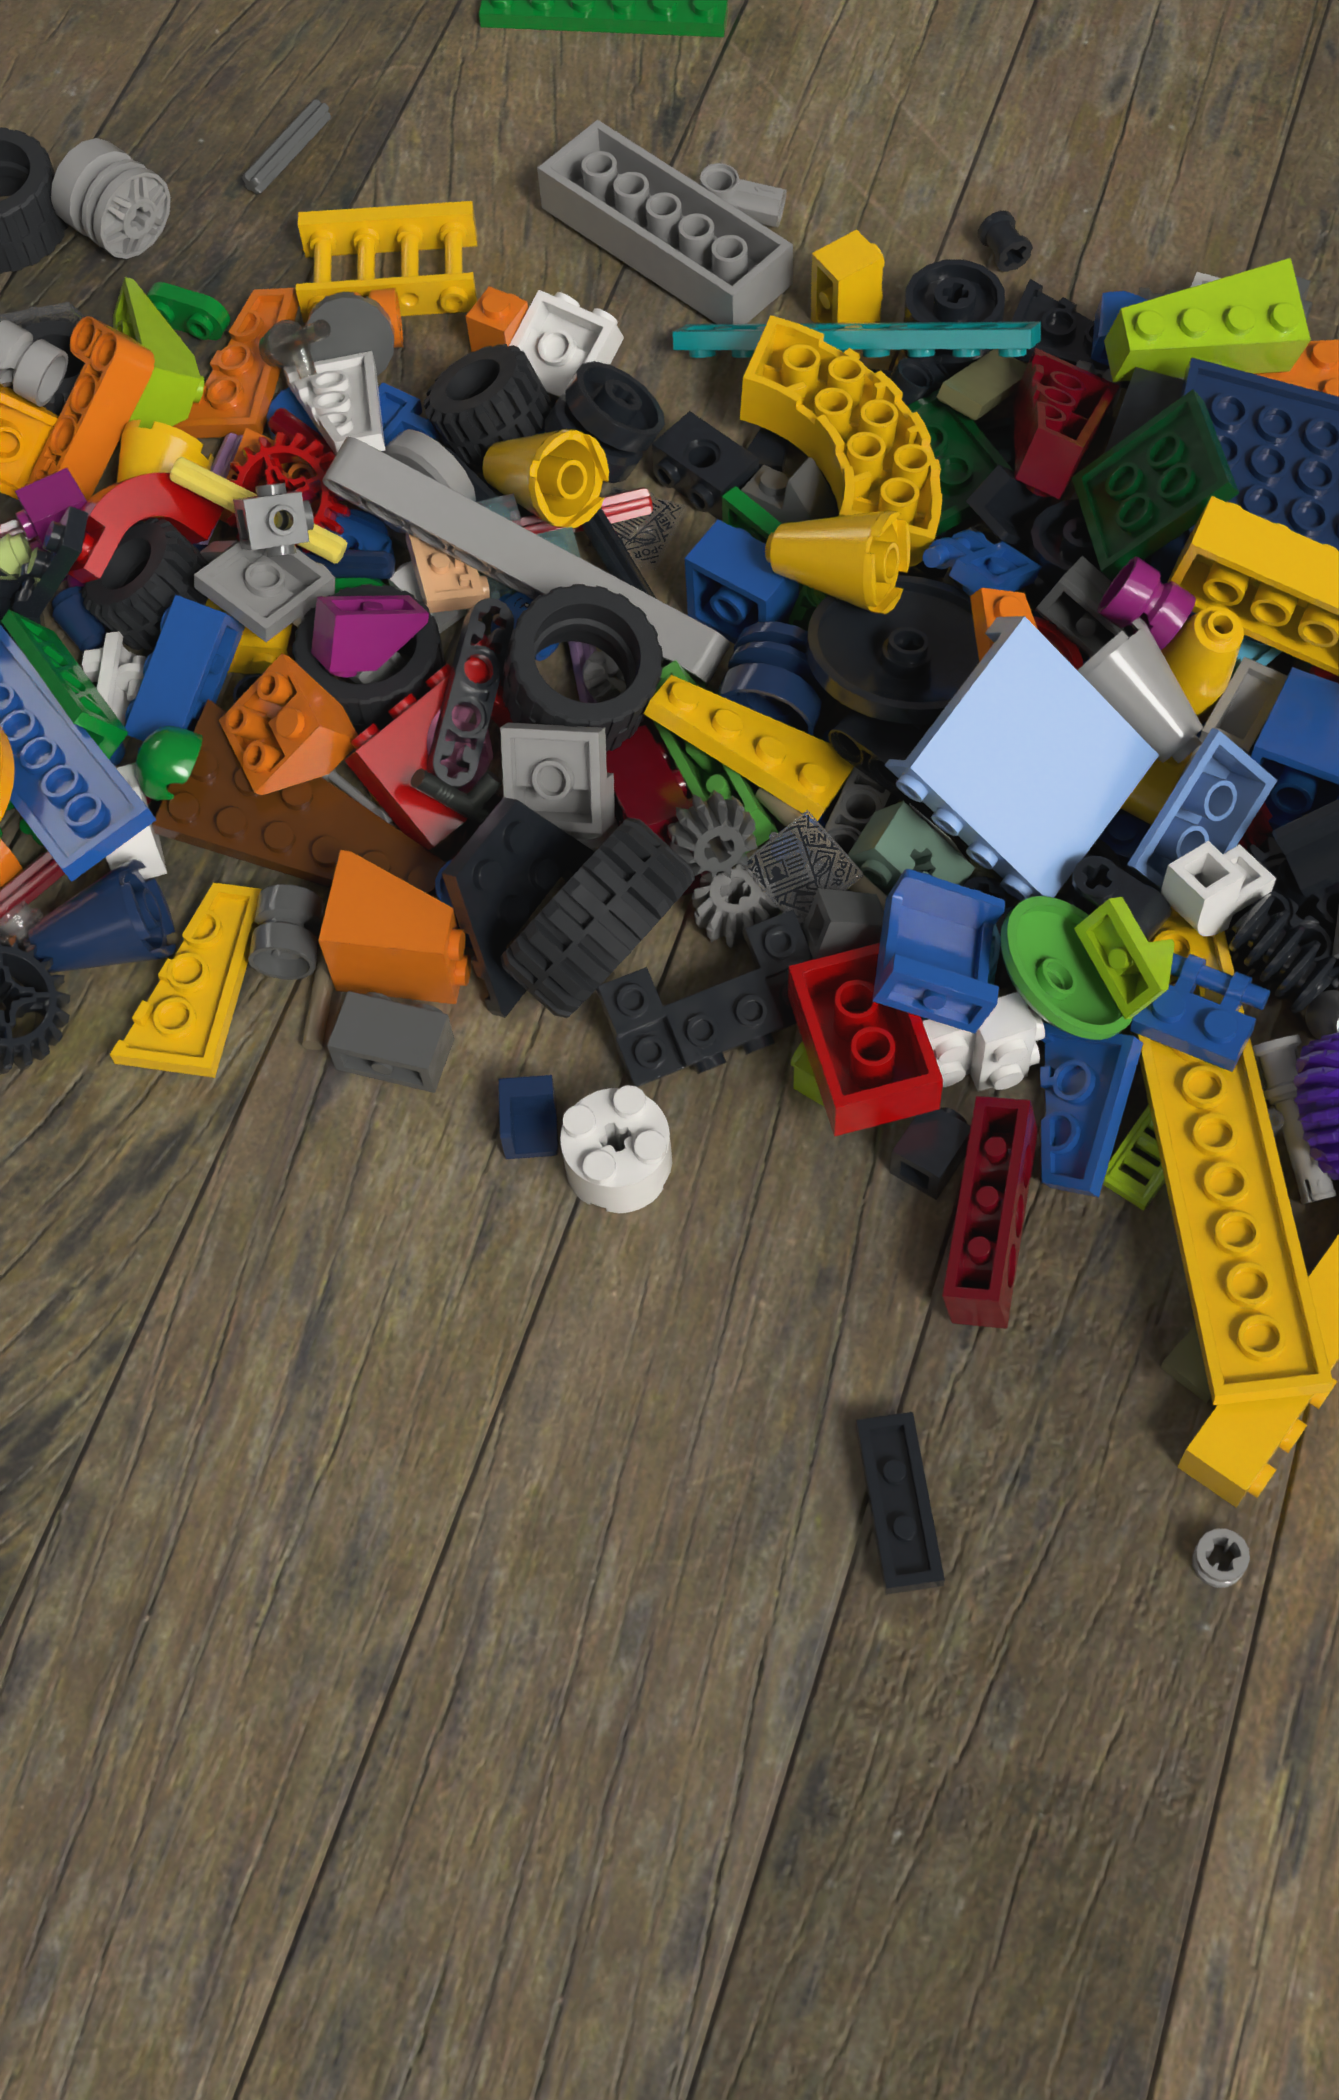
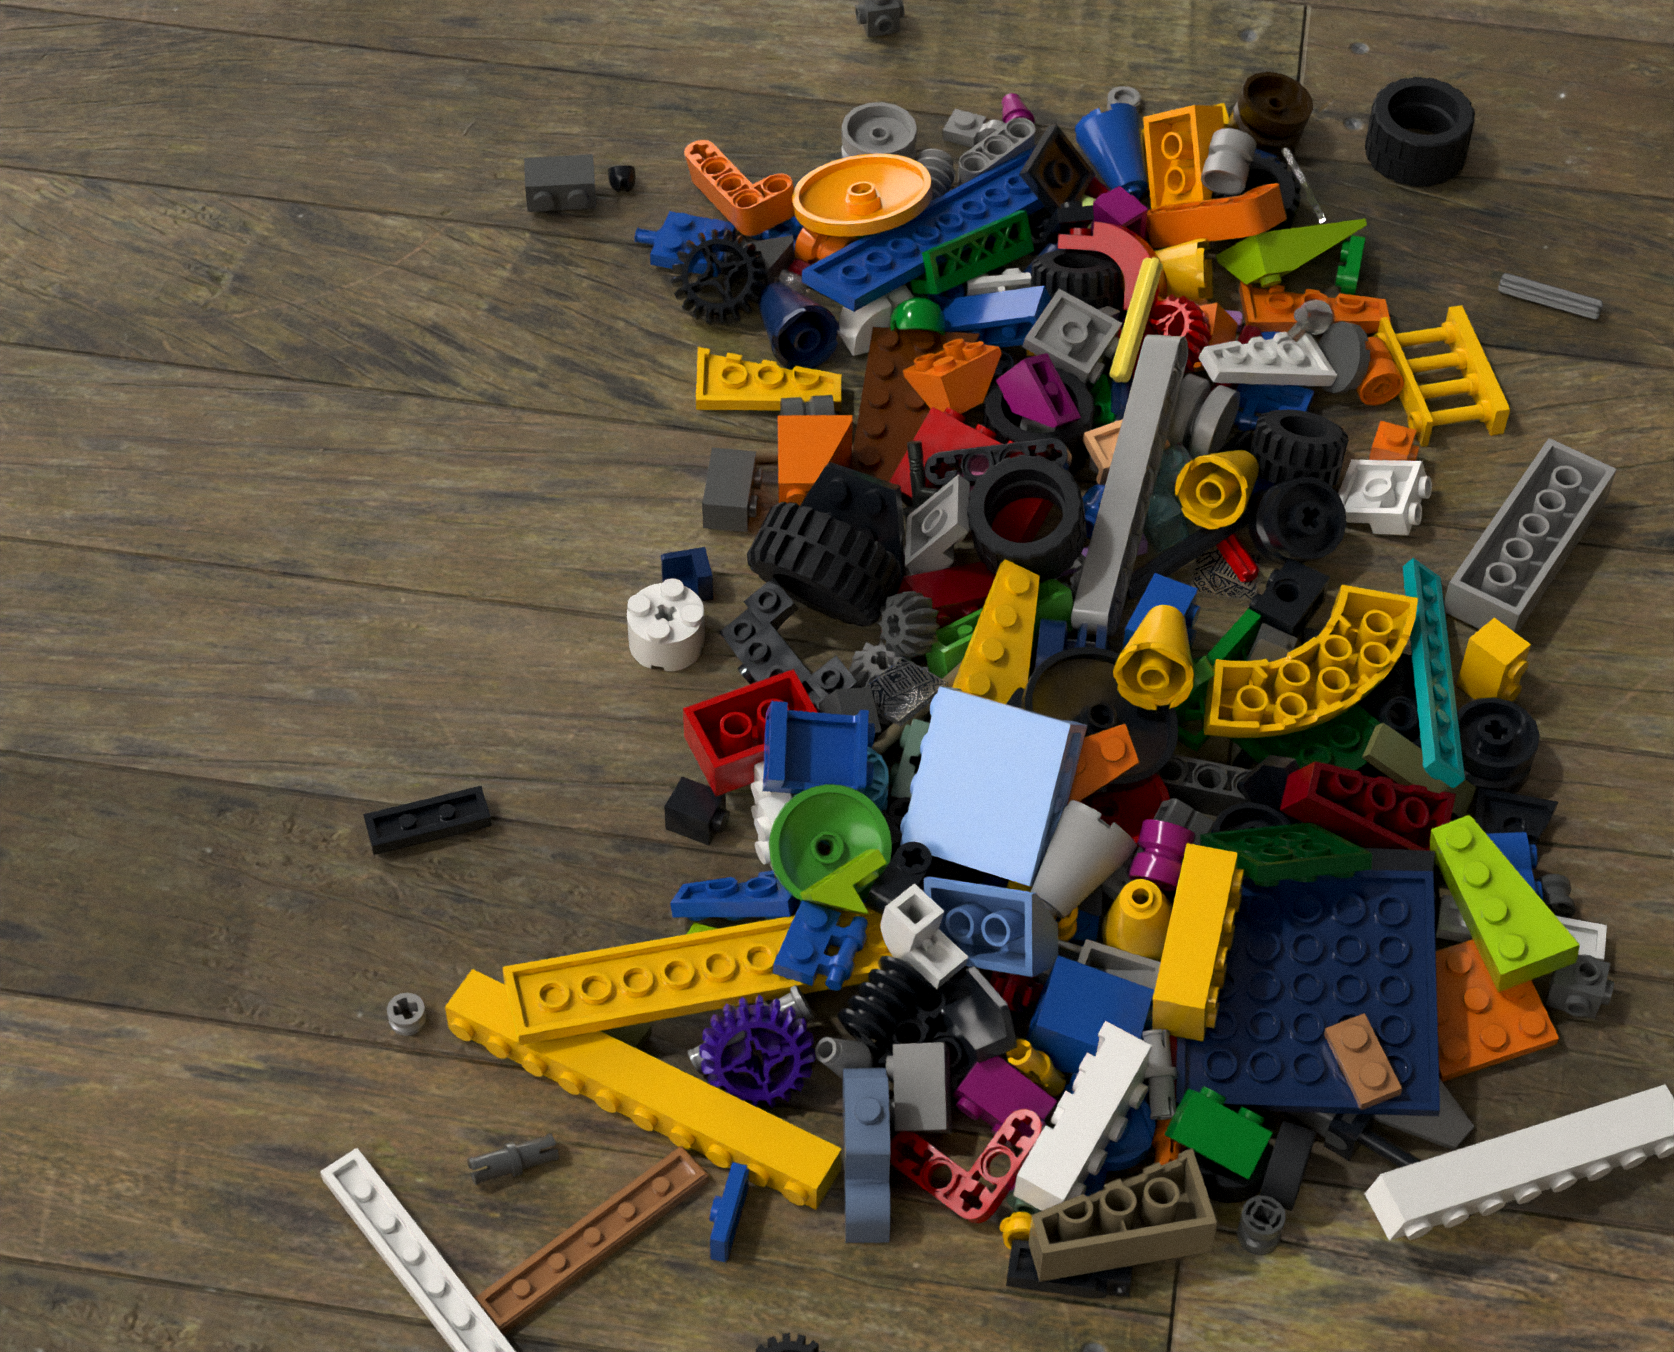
camera: 75 degrees right, 10 degrees down
(110, 198) = (1438, 193): light grey wheel -> none
(257, 525) = (1109, 316): brick -> none
(754, 199) = (1586, 591): light grey piece -> none
(980, 563) = (1196, 774): blue plate -> none
(990, 1212) = (645, 843): dark red brick -> none
(1001, 236) = (1601, 783): black bush -> none

